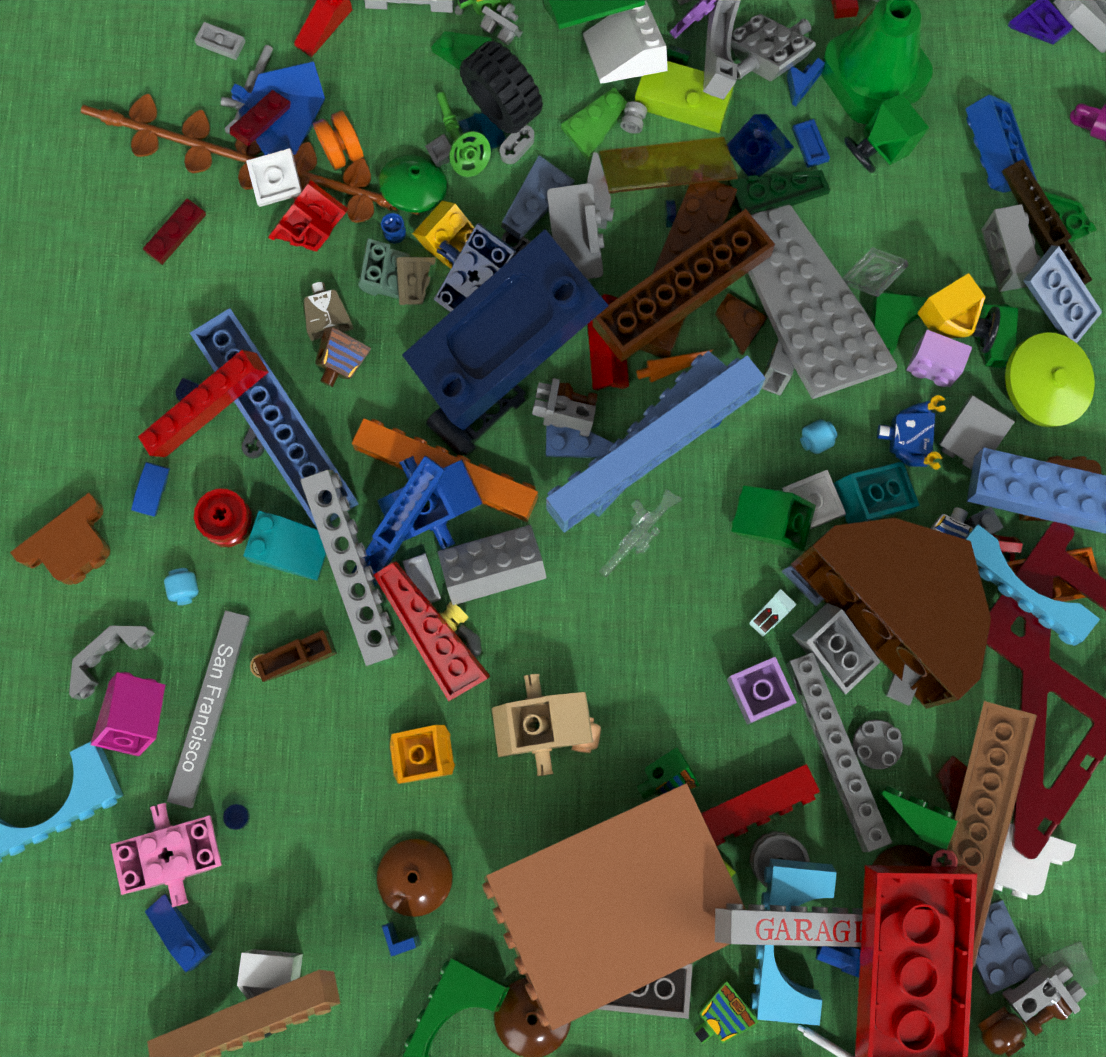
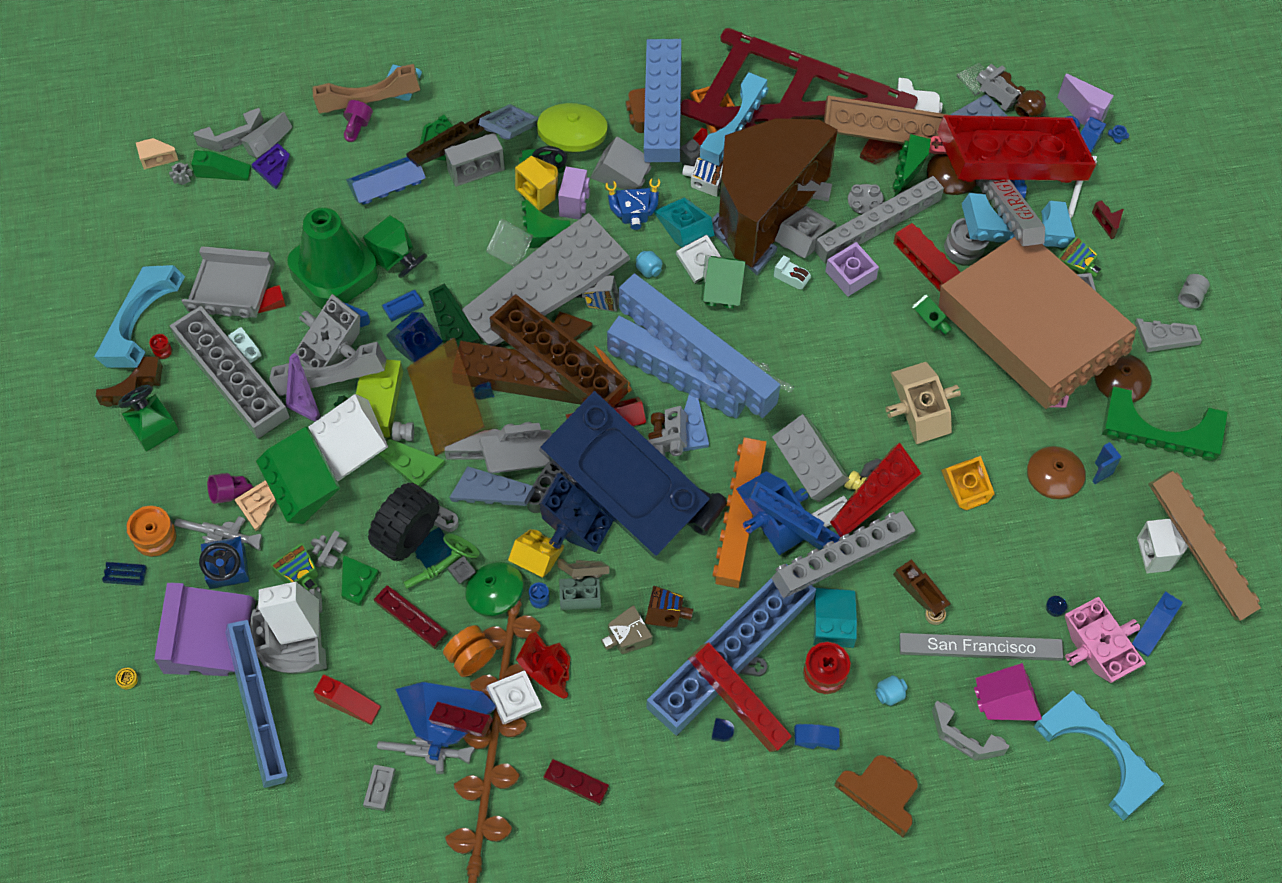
camera: 105 degrees left, 15 degrees down
(402, 95) = (410, 617): none -> dark red plate

